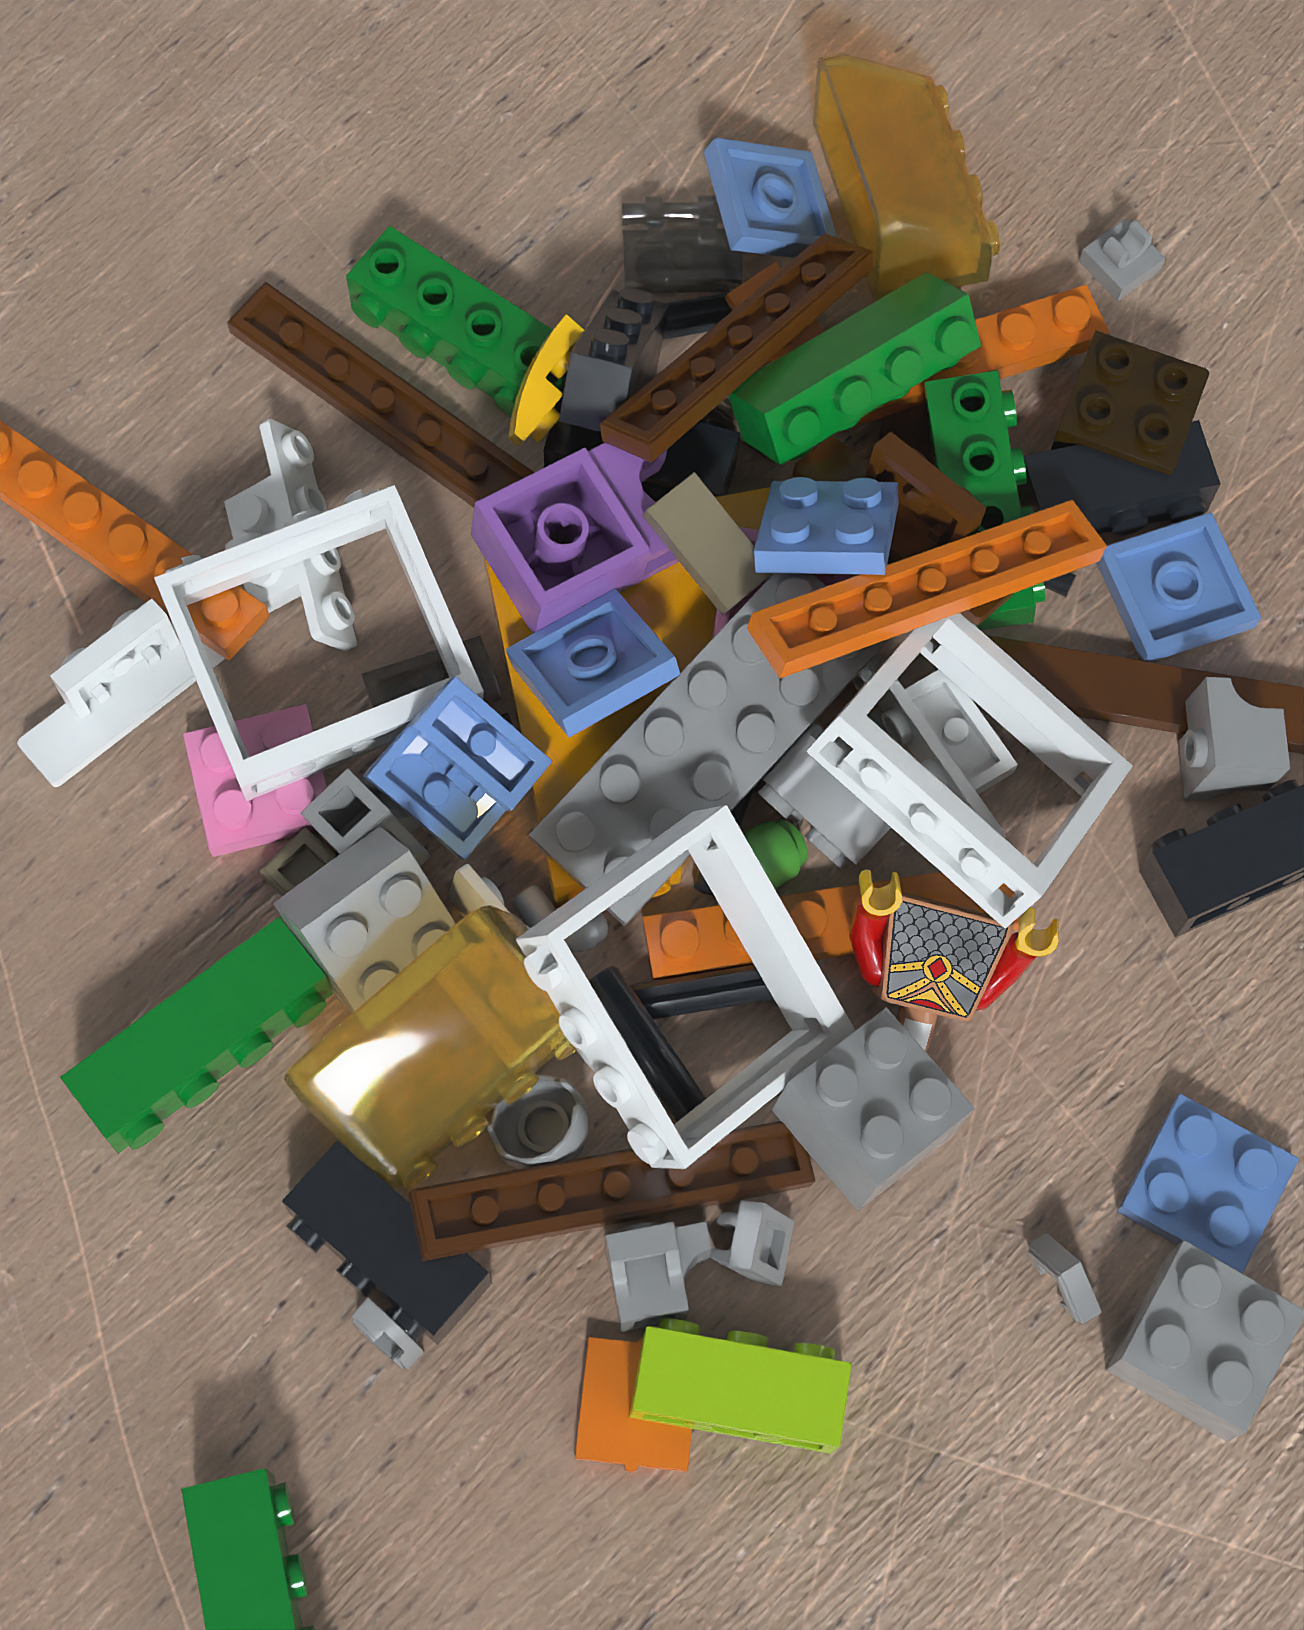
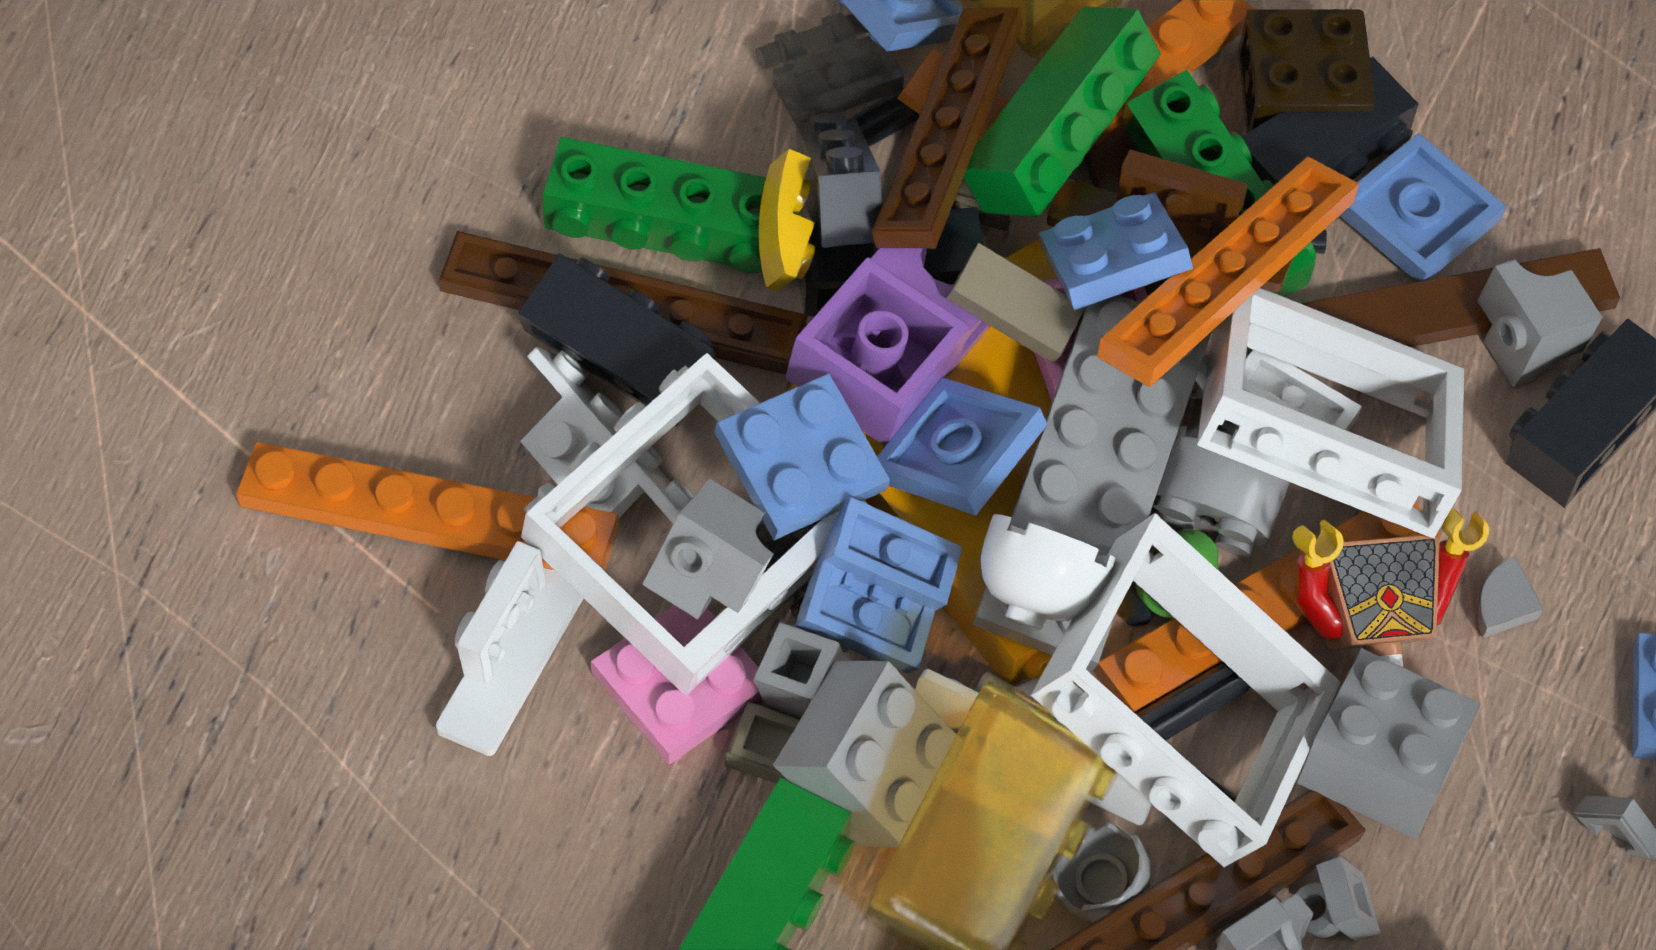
camera: 25 degrees left, 10 degrees down
(297, 678) = (710, 553): none -> light grey brick
(346, 429) = (610, 331): none -> black brick
(435, 618) = (801, 456): none -> medium blue plate
(591, 819) = (1041, 572): none -> white cylinder
(1068, 1008) = (1506, 600): none -> light grey tile

